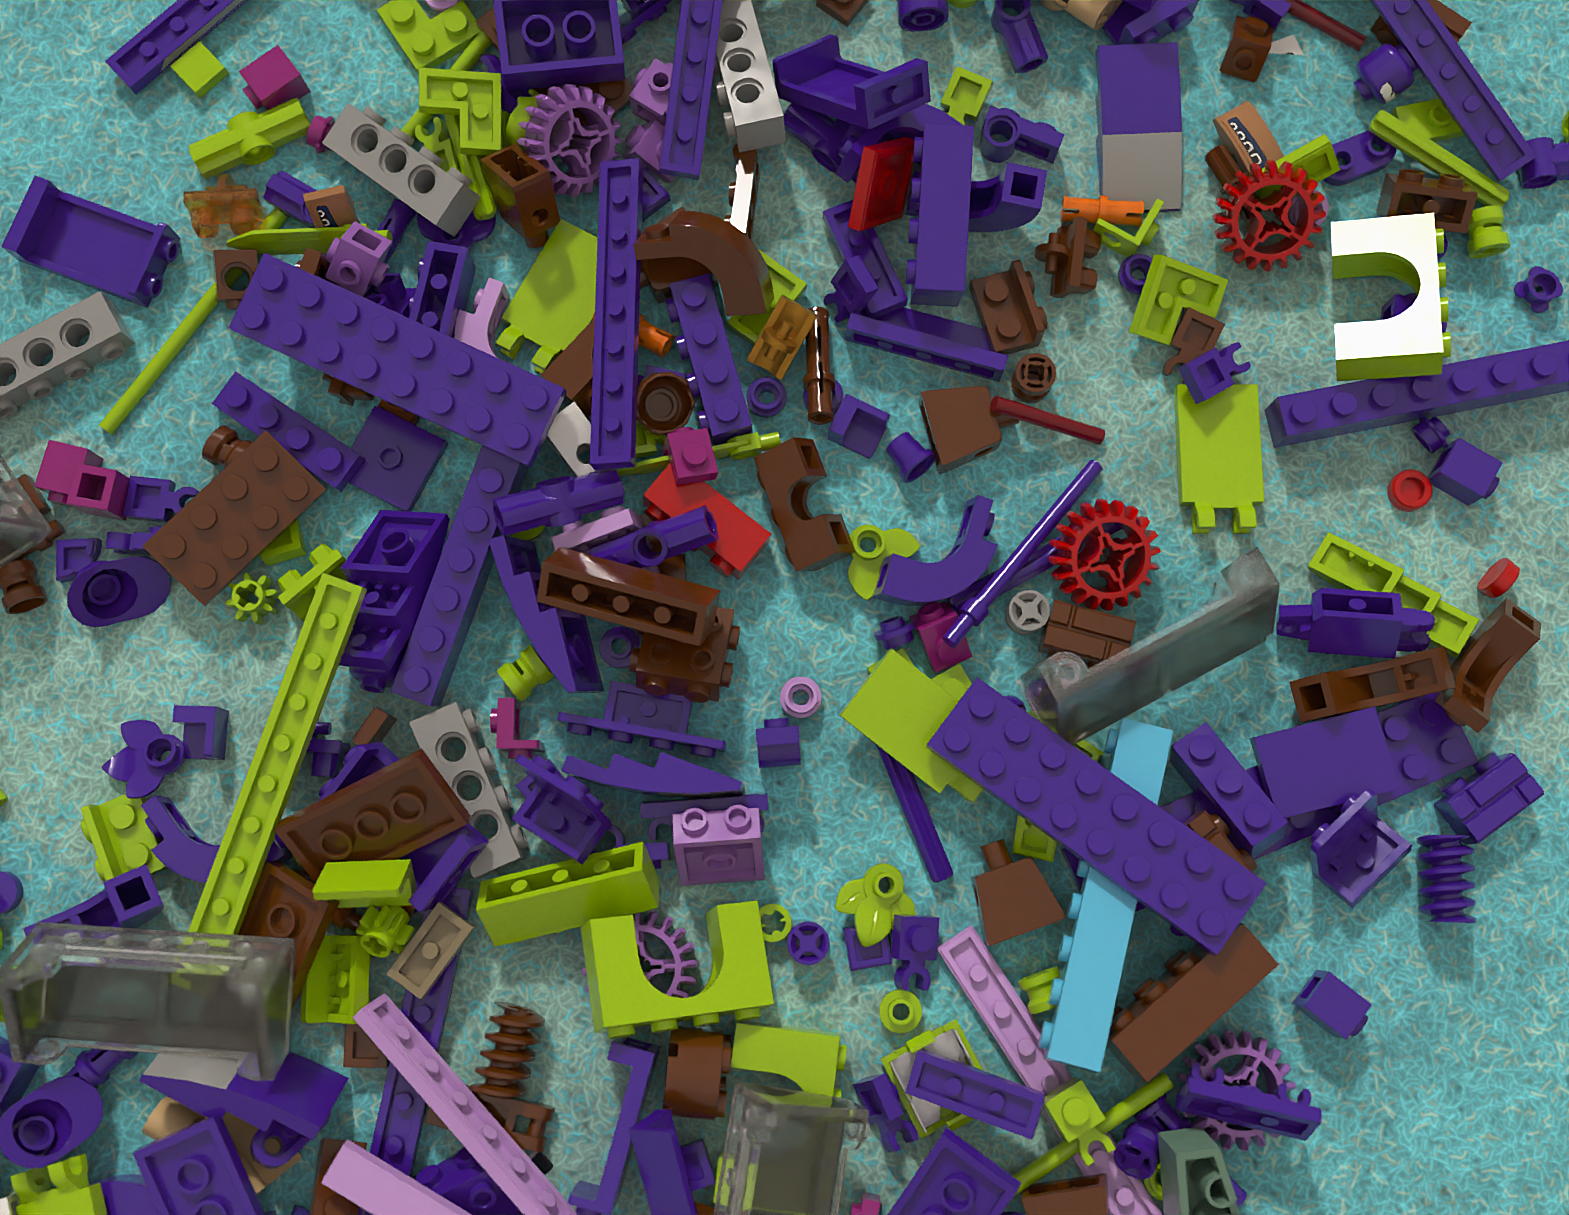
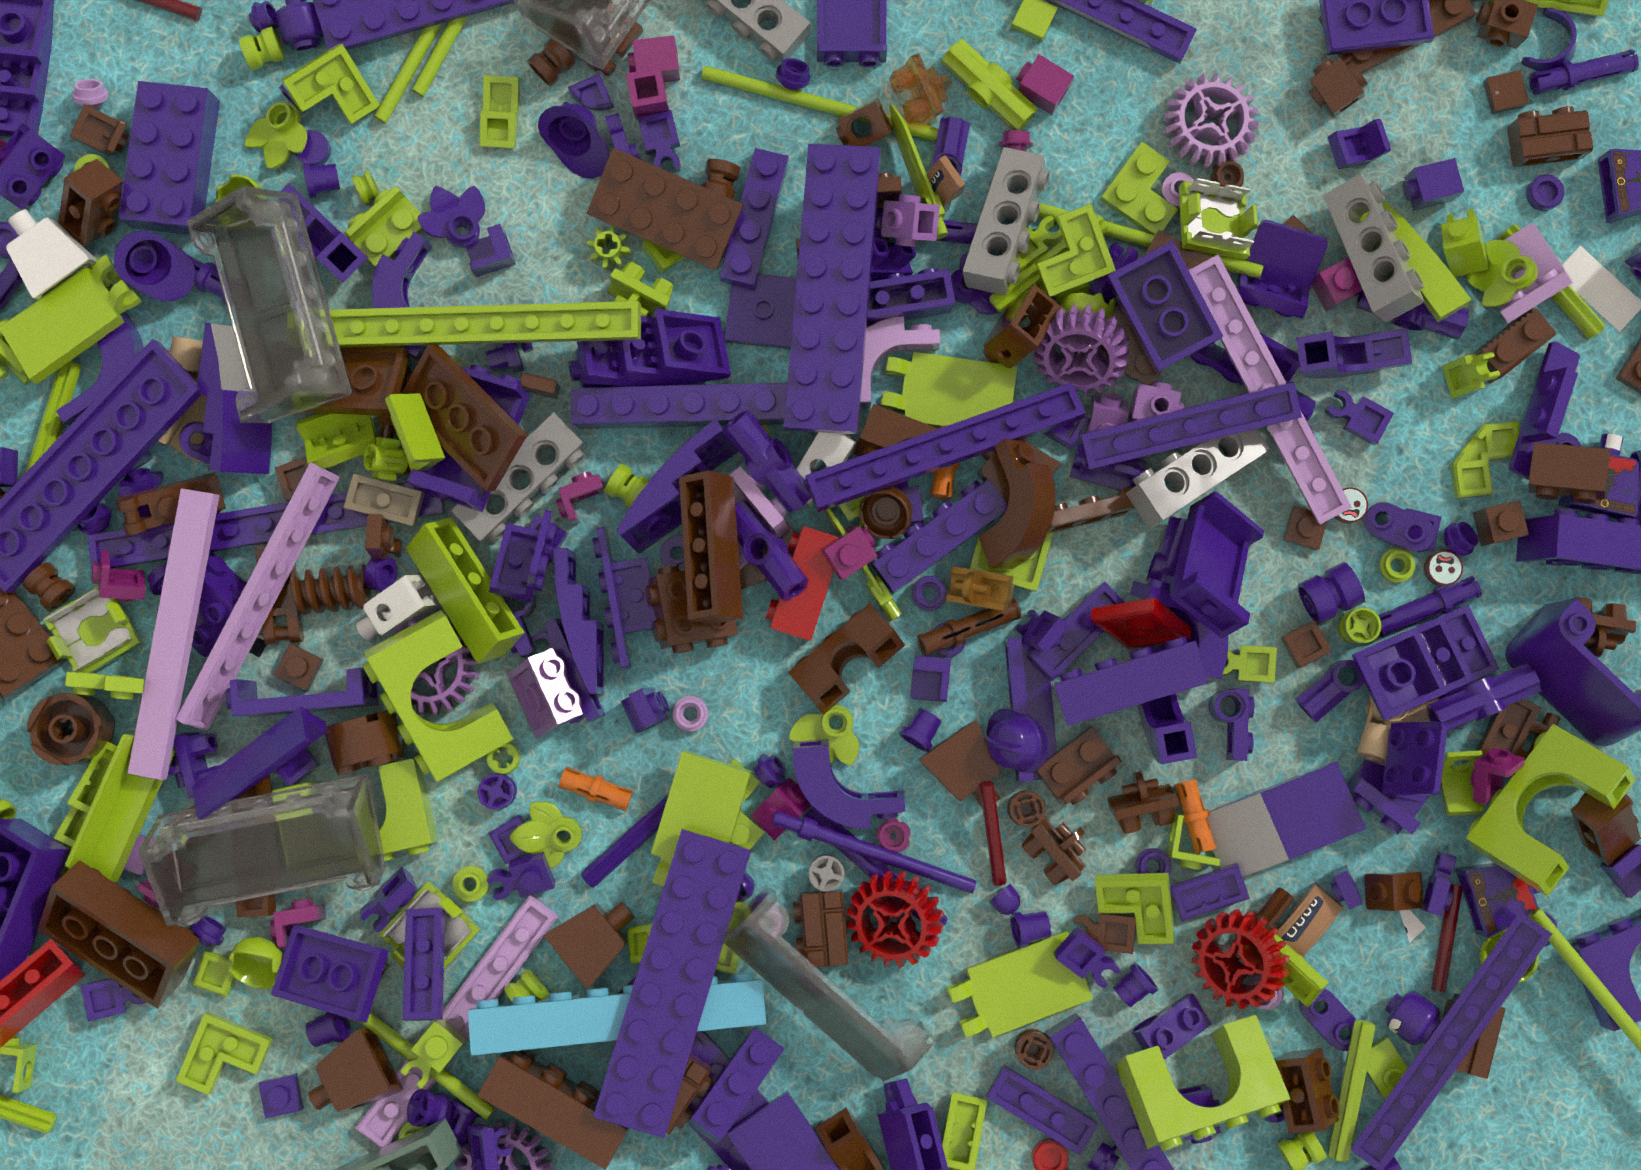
camera: 70 degrees right, 5 degrees up
(37, 893) = (321, 179): none -> dark purple piece
(49, 665) = (499, 111): none -> lime slope
(68, 844) = (366, 186): none -> lime bush
(149, 334) = (793, 74): none -> dark purple plate
(473, 969) = (381, 538): none -> reddish brown plate
(512, 987) = (380, 573): none -> dark purple tile
(558, 961) = (397, 606): none -> white torso
(582, 1122) = (299, 667): none -> reddish brown plate
(716, 163) = (1113, 476): none -> dark purple hinge
(845, 831) = (595, 789): none -> orange pin
(959, 355) = (1016, 741): none -> dark purple piece
(963, 39) = (1306, 644): none -> reddish brown plate
(1007, 518) = (900, 828): none -> magenta plate
(1105, 359) = (1061, 845): none -> reddish brown hips
(1122, 435) = (1006, 901): none -> dark purple hinge
(1160, 421) = (1029, 927): none -> dark purple piece
(1186, 224) = (1209, 892): none -> dark purple plate
(1228, 90) = (1345, 887): none -> dark purple plate
(1258, 336) = (1135, 985): none -> dark purple piece
(1284, 469) = (1031, 1042): none -> reddish brown wheel
(1314, 315) = (1173, 1026): none -> dark purple plate
(1357, 479) = (1041, 1109): none -> dark purple plate

